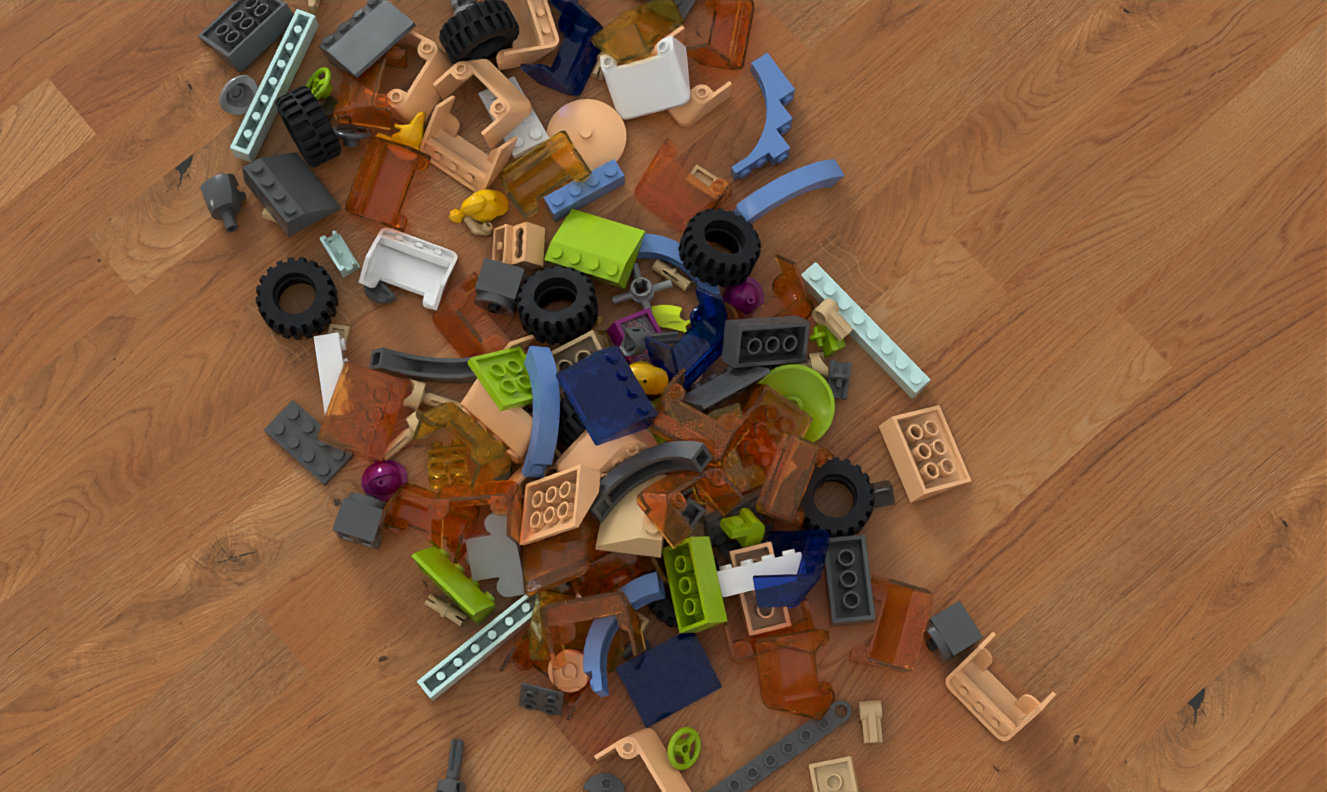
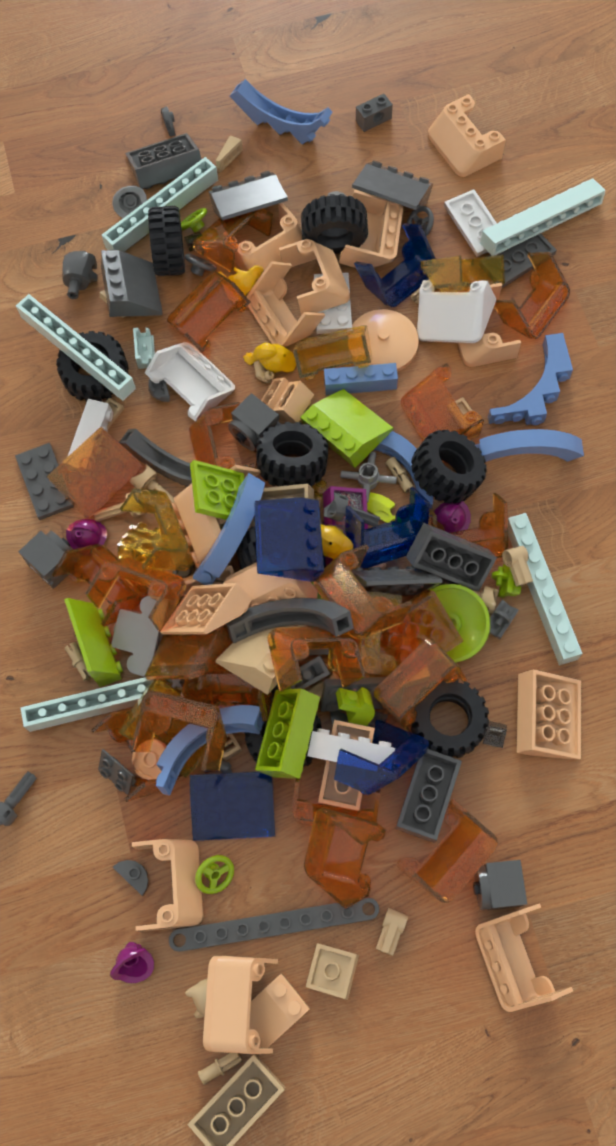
camera: 30 degrees right, 5 degrees down
(277, 288) = (76, 347): none -> light aqua brick

